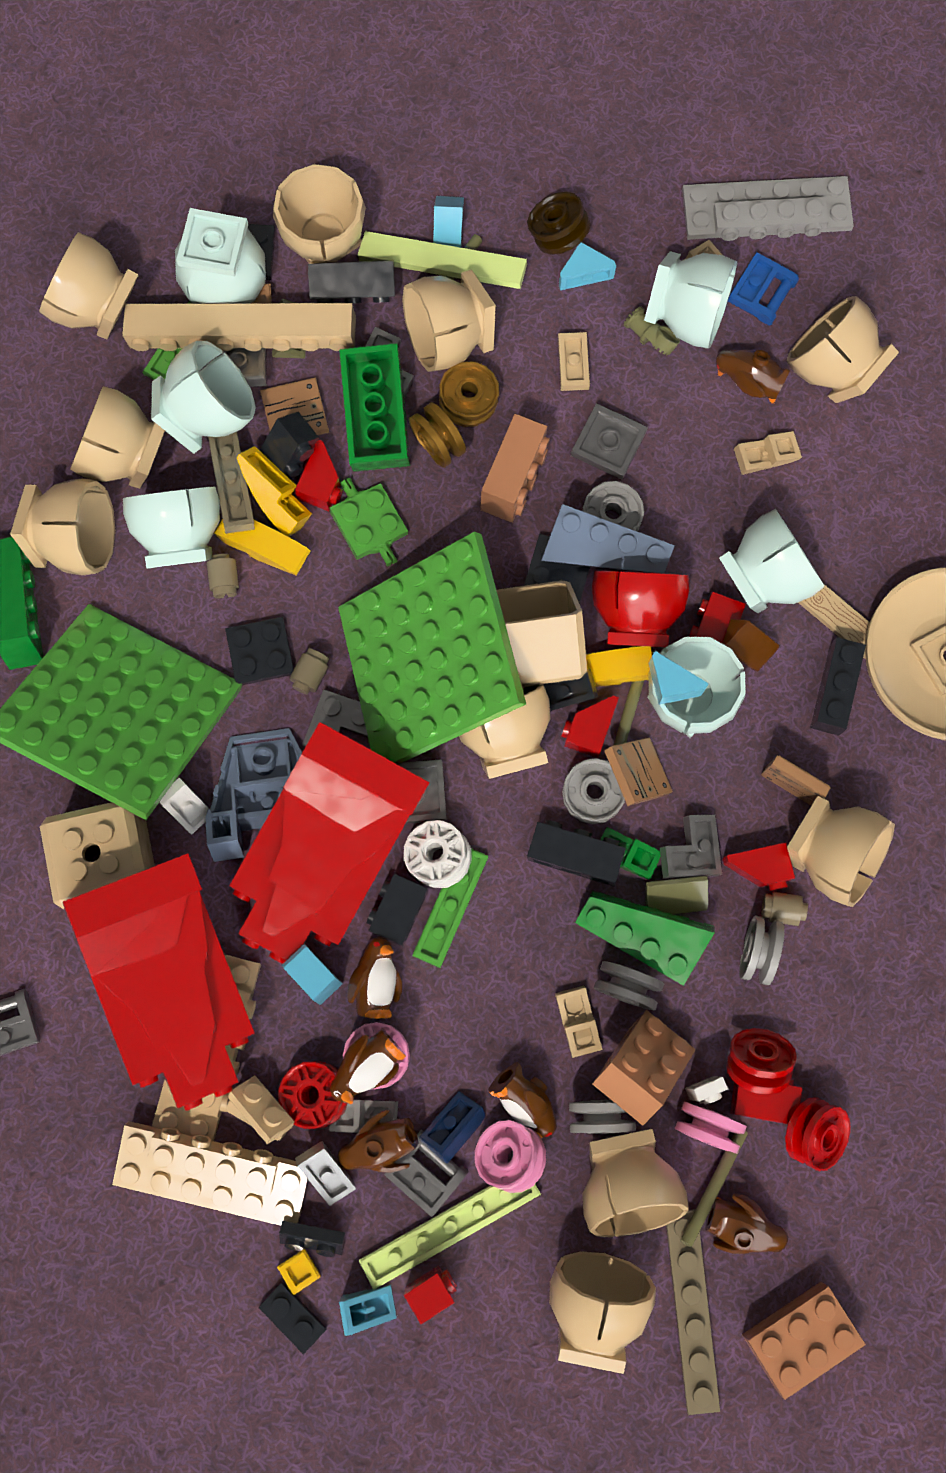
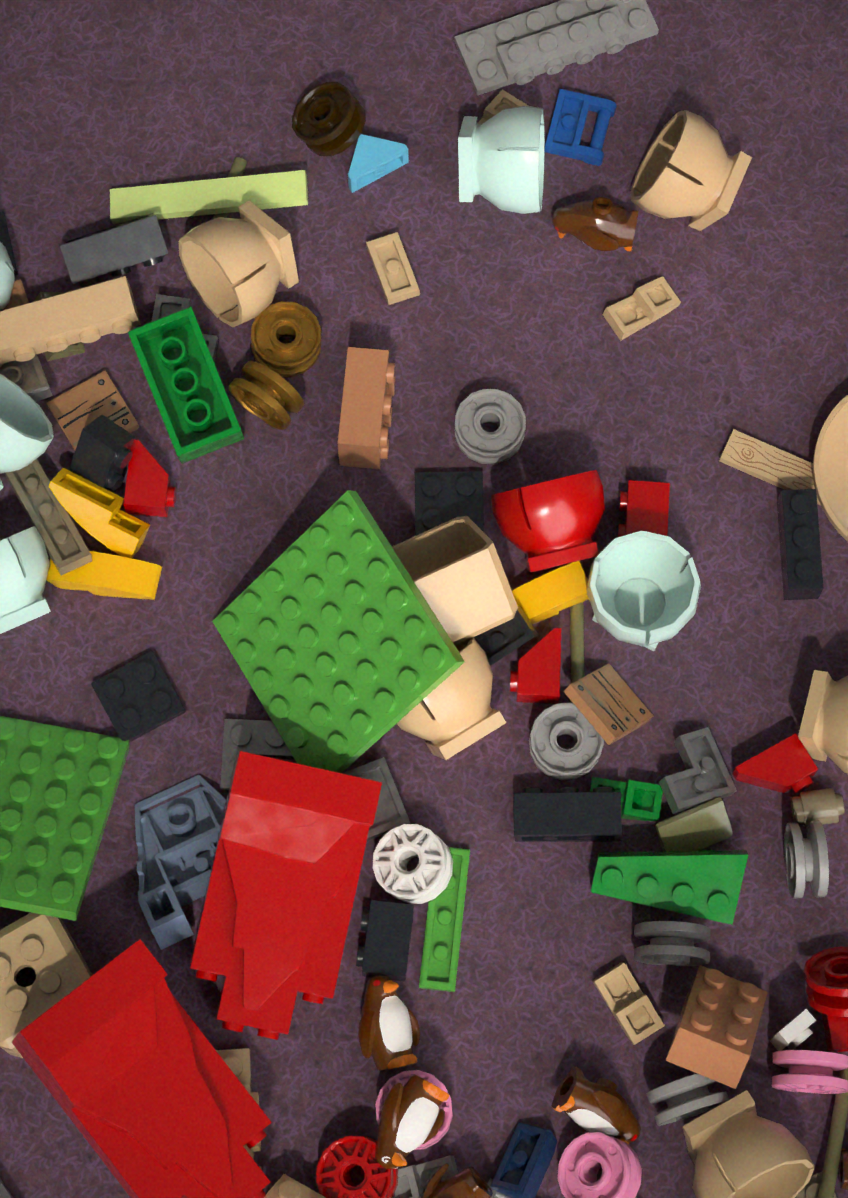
camera: 15 degrees left, 5 degrees down
(185, 806) = (111, 896): white plate -> none
(222, 576) = (69, 625): dark tan brick -> none
(309, 671) = (202, 703): dark tan brick -> none
(311, 974) = (314, 1040): medium azure slope -> none
(319, 213) = (56, 185): tan plate -> none
(368, 521) = (216, 515): bright green plate -> none
(448, 220) = (201, 150): medium azure slope -> none
(596, 542) = (486, 463): sand blue wedge -> none
(609, 441) = (460, 346): flat silver plate -> none
(658, 335) = (481, 212): olive connector -> none
(673, 681) = (616, 590): medium azure slope -> none
(749, 643) = (688, 525): reddish brown slope -> none
(771, 565) = (685, 432): light aqua plate -> none
(795, 780) = (784, 661): medium nougat tile -> none

